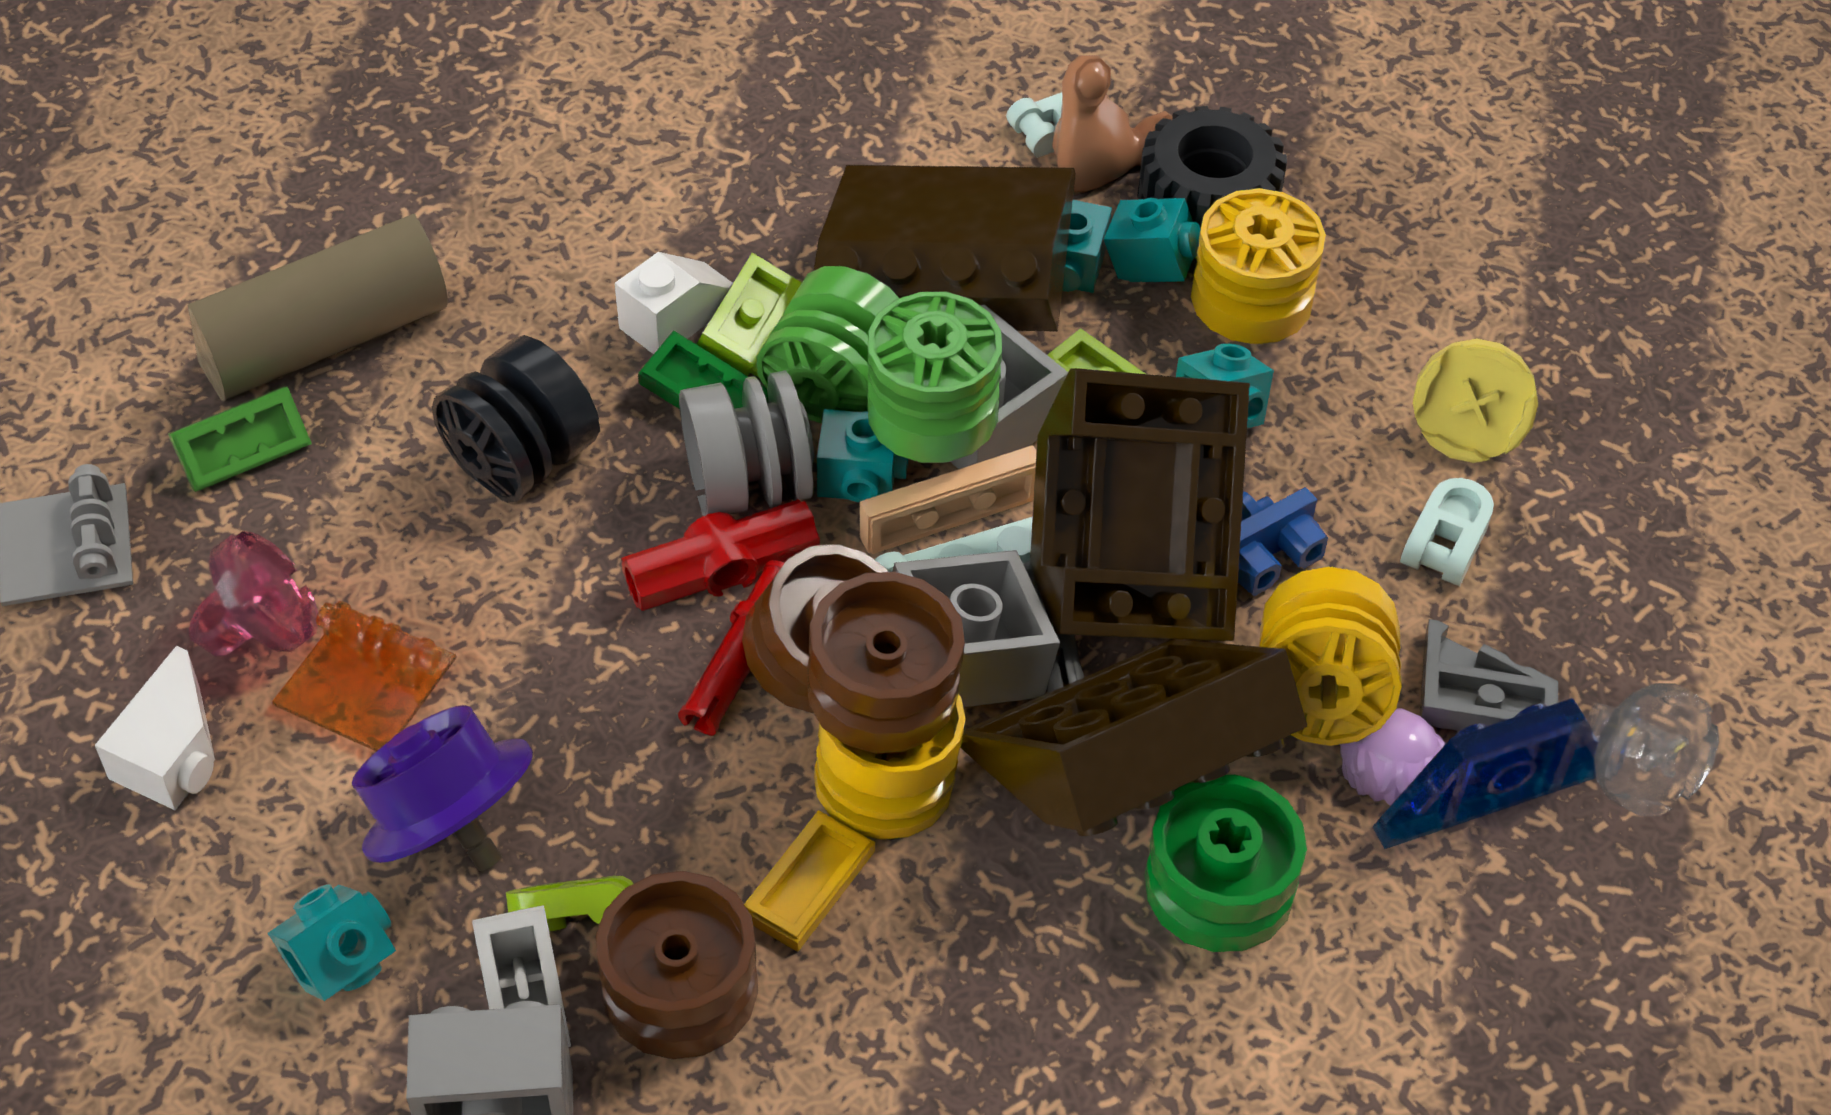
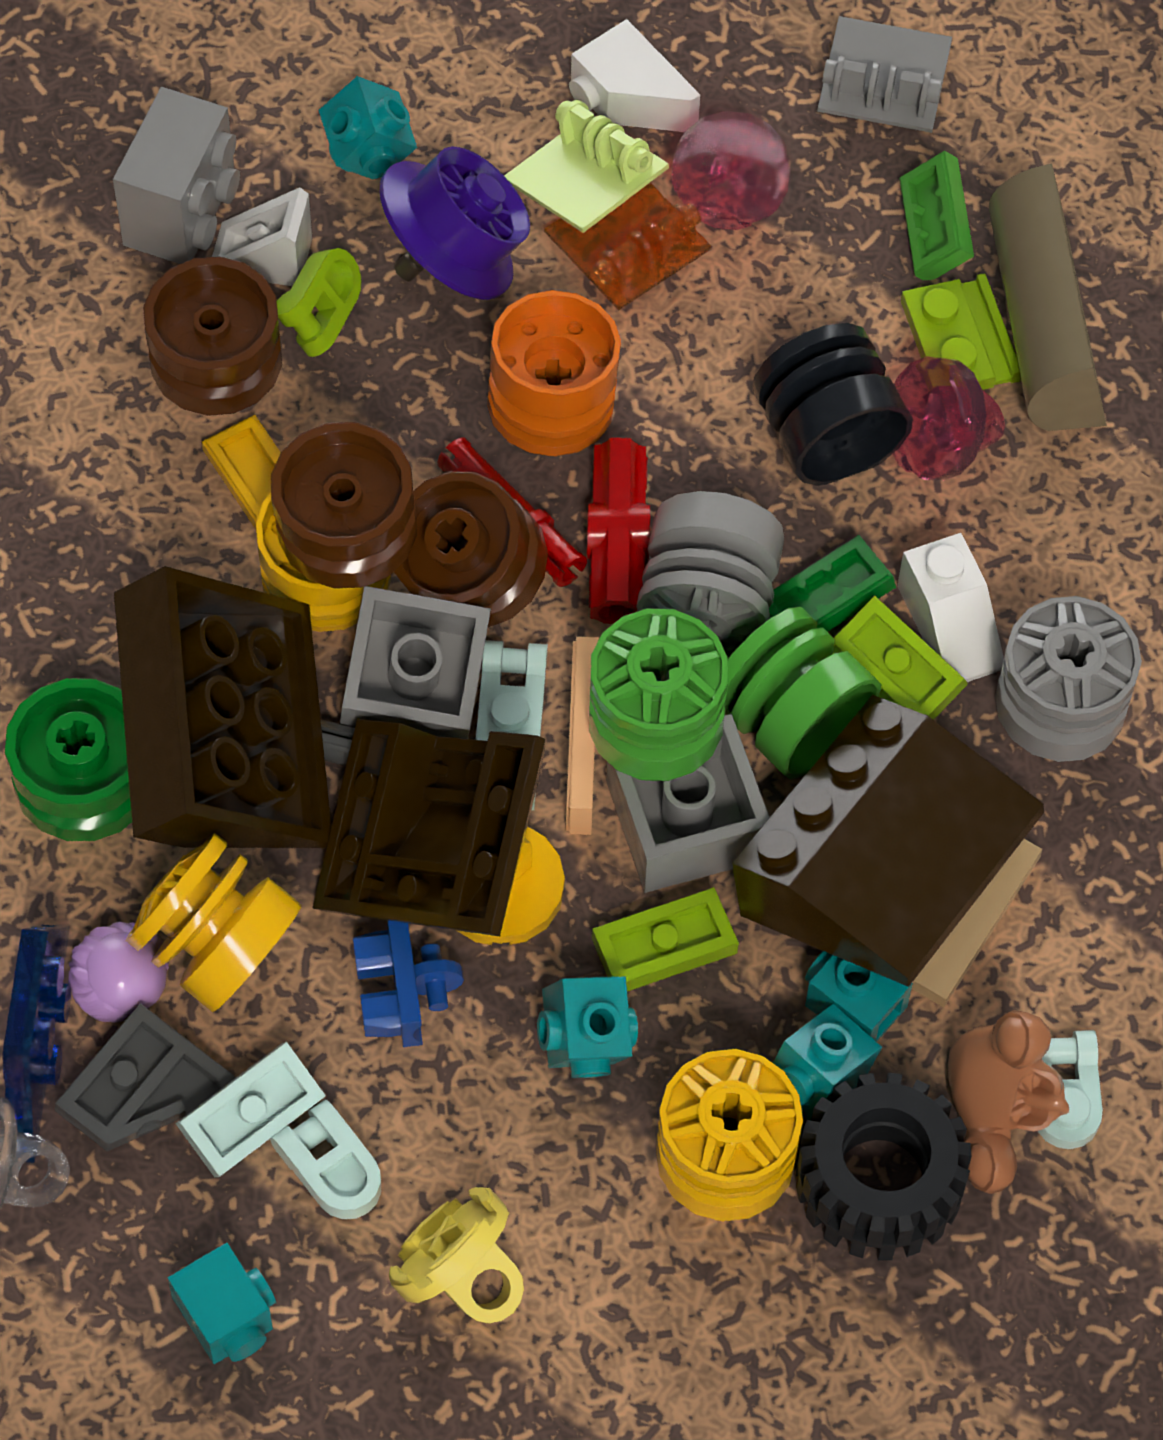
camera: 115 degrees right, 10 degrees up
(300, 734) = (586, 167): none -> yellowish green hinge
(367, 391) = (963, 325): none -> lime plate
(478, 327) = (949, 418): none -> clear pink tile
(584, 641) = (553, 372): none -> orange wheel
(714, 189) = (1067, 678): none -> light grey wheel
(1451, 597) = (250, 1109): none -> light aqua plate
(1623, 543) = (224, 1304): none -> teal brick

